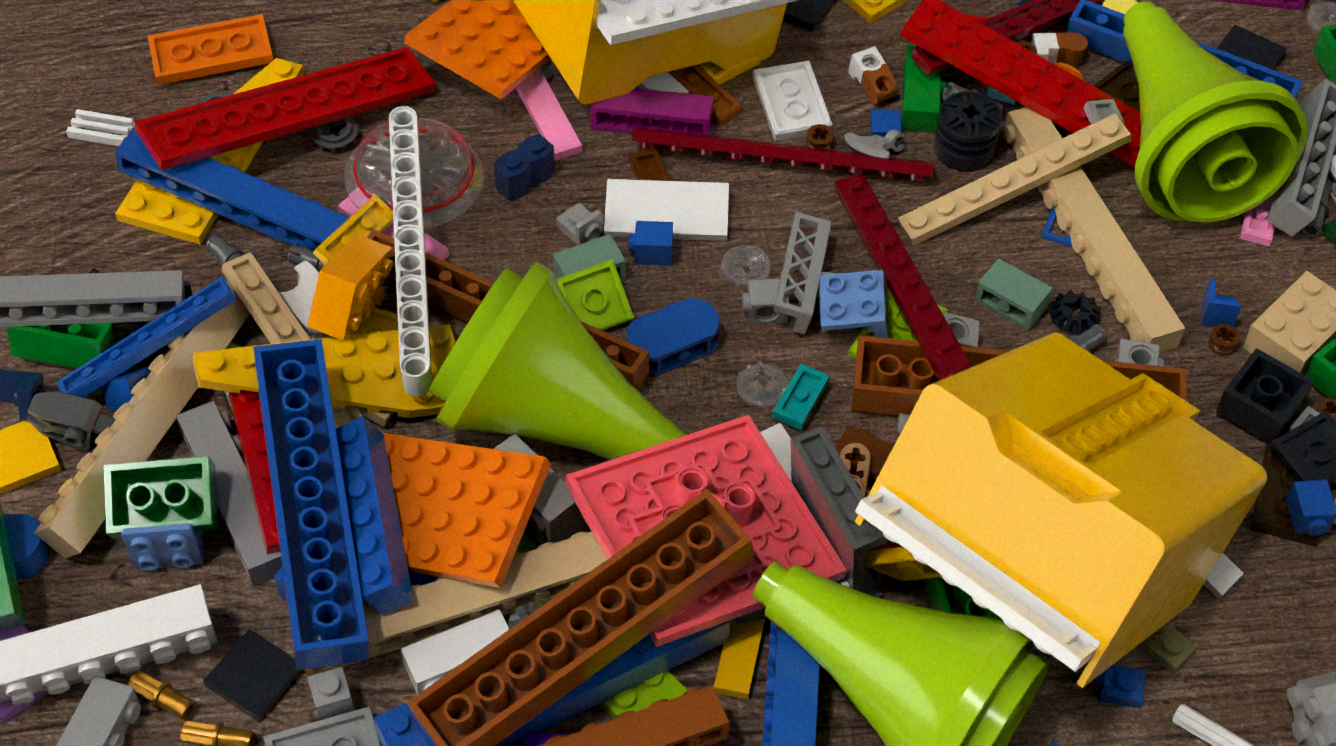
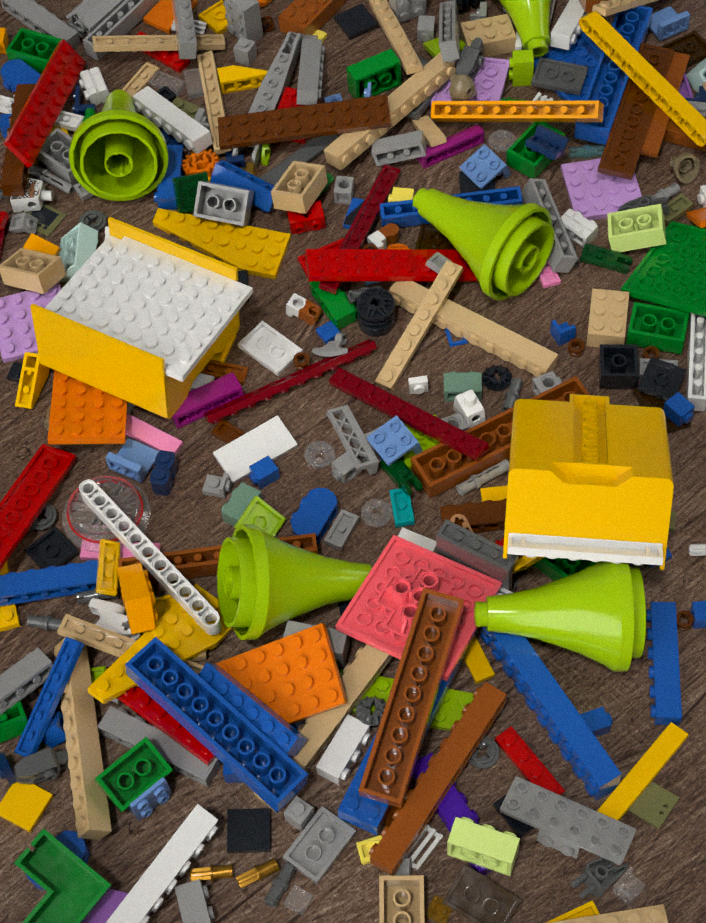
camera: 30 degrees left, 5 degrees up
(314, 177) = (52, 550): none -> black tile
(497, 130) = (132, 460): none -> medium blue bracket
(695, 375) = (341, 530): none -> light grey plate
(833, 354) = (401, 476): none -> dark green hinge
(952, 256) = (418, 385): none -> white plate
(997, 320) = (469, 407): none -> white torso
(1275, 35) = (484, 167): none -> medium blue bracket

